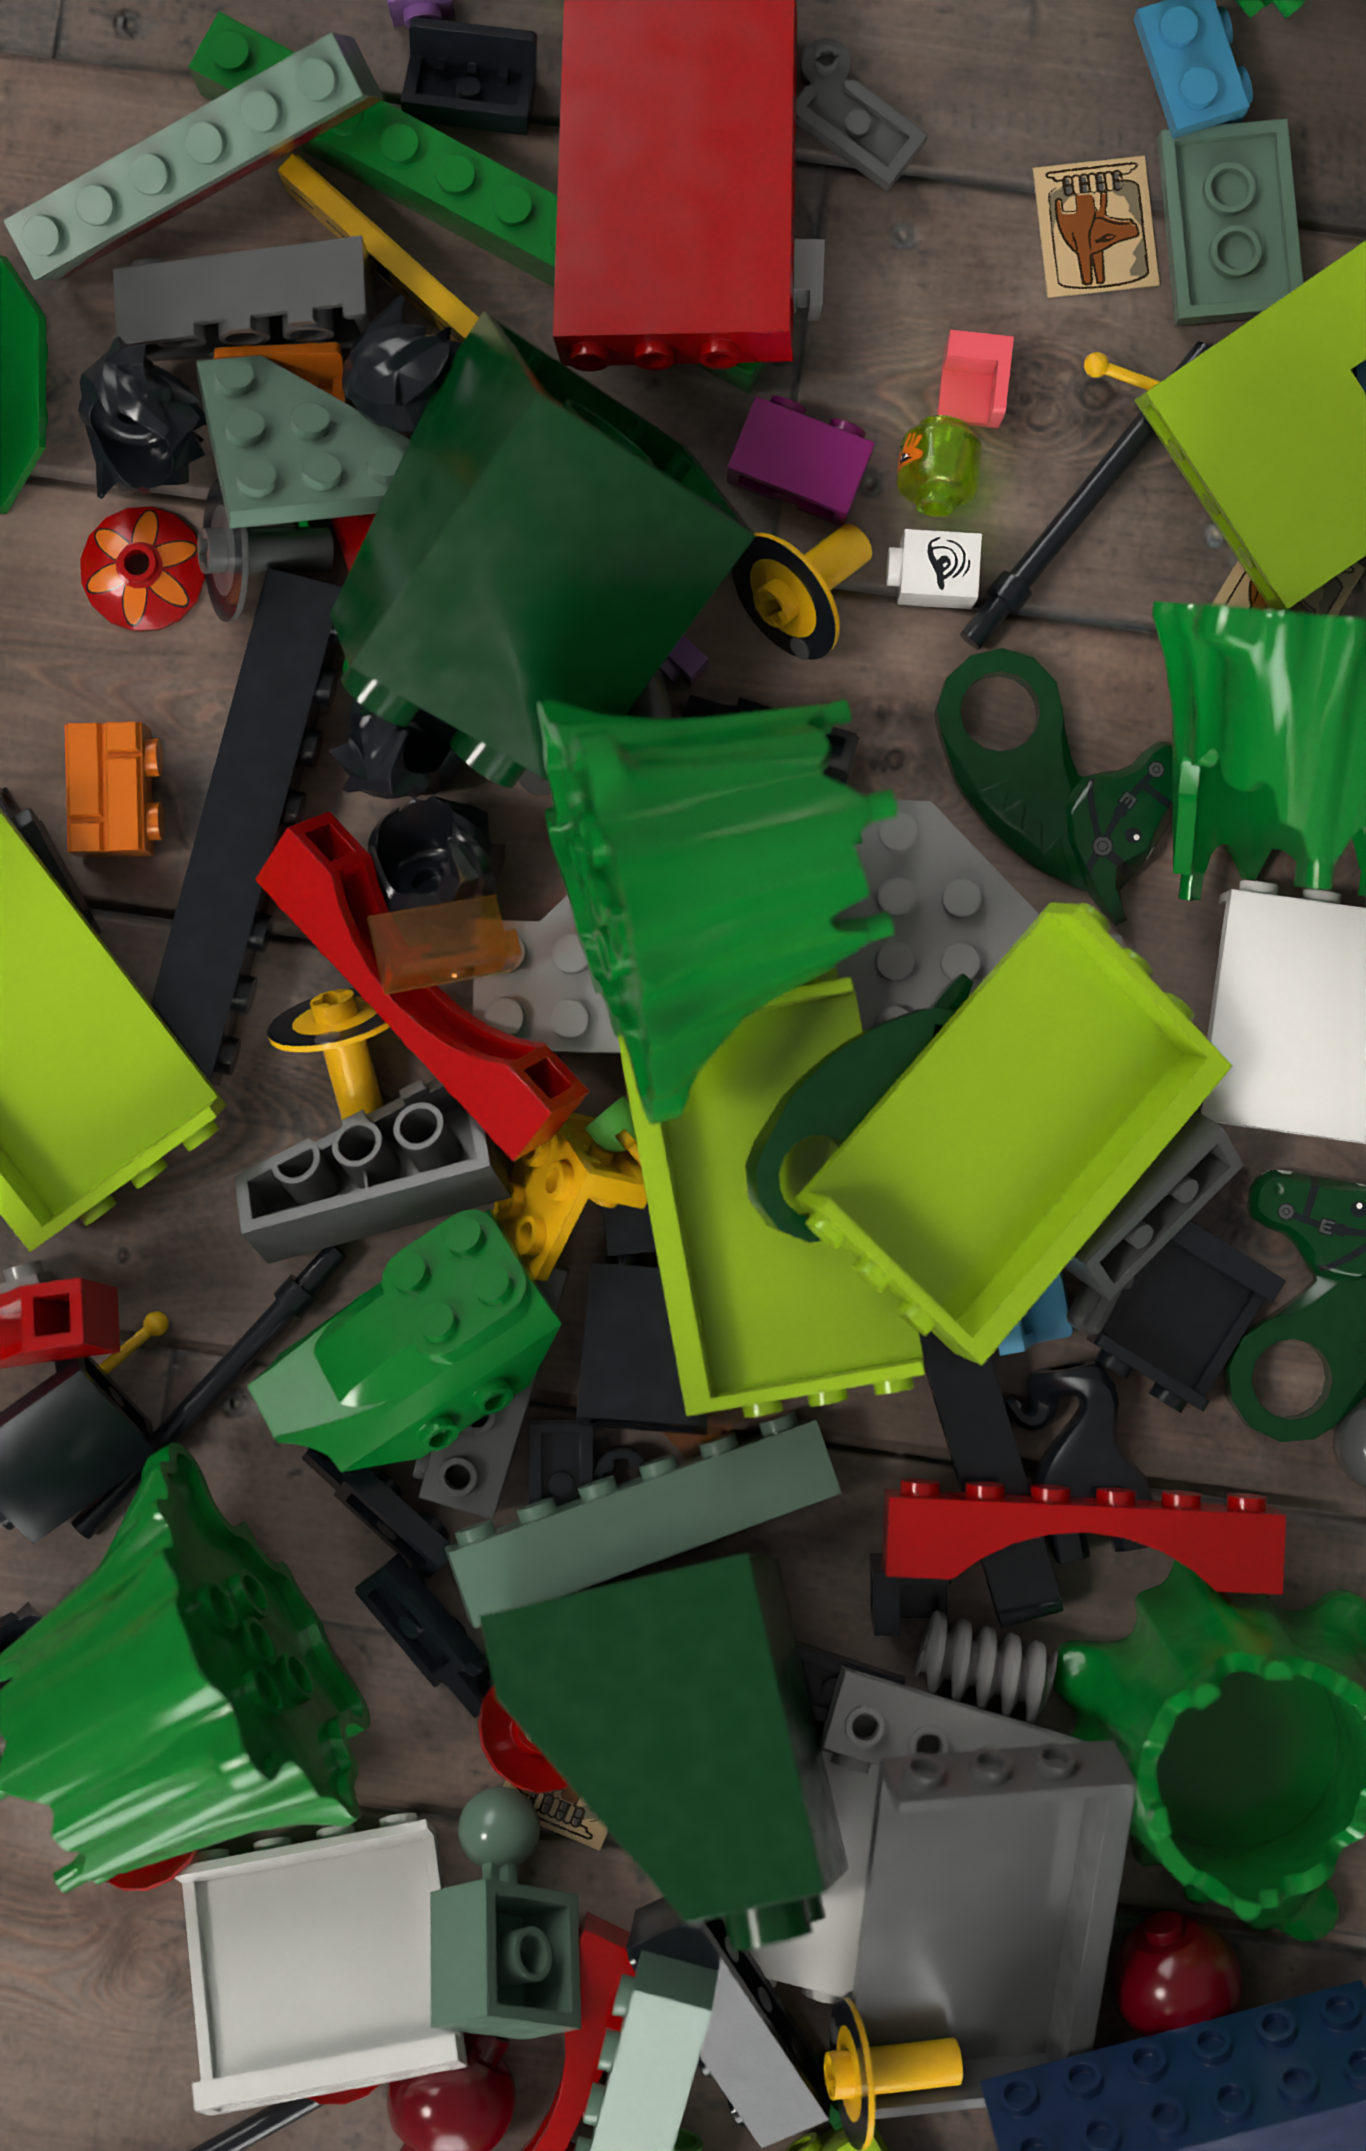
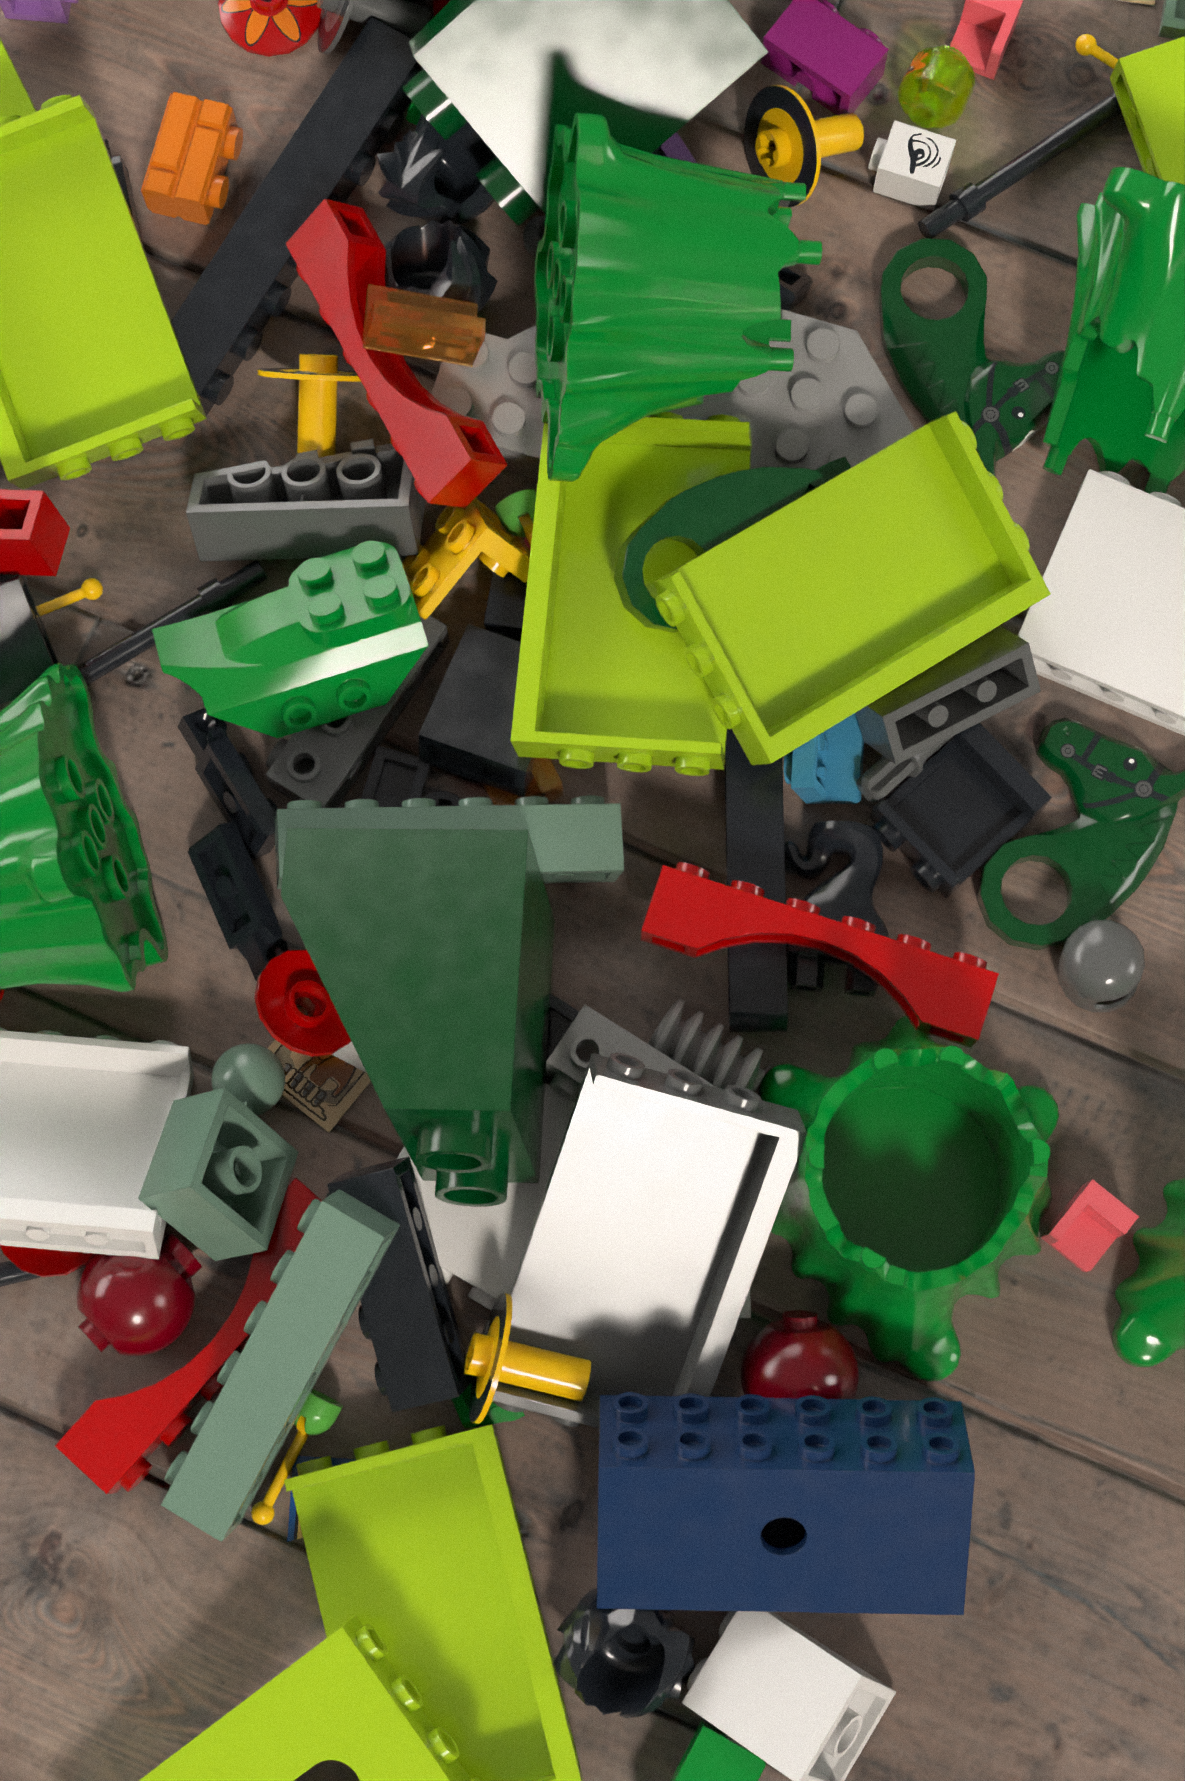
camera: 15 degrees right, 10 degrees down
(902, 1598) = (658, 976): black panel -> none

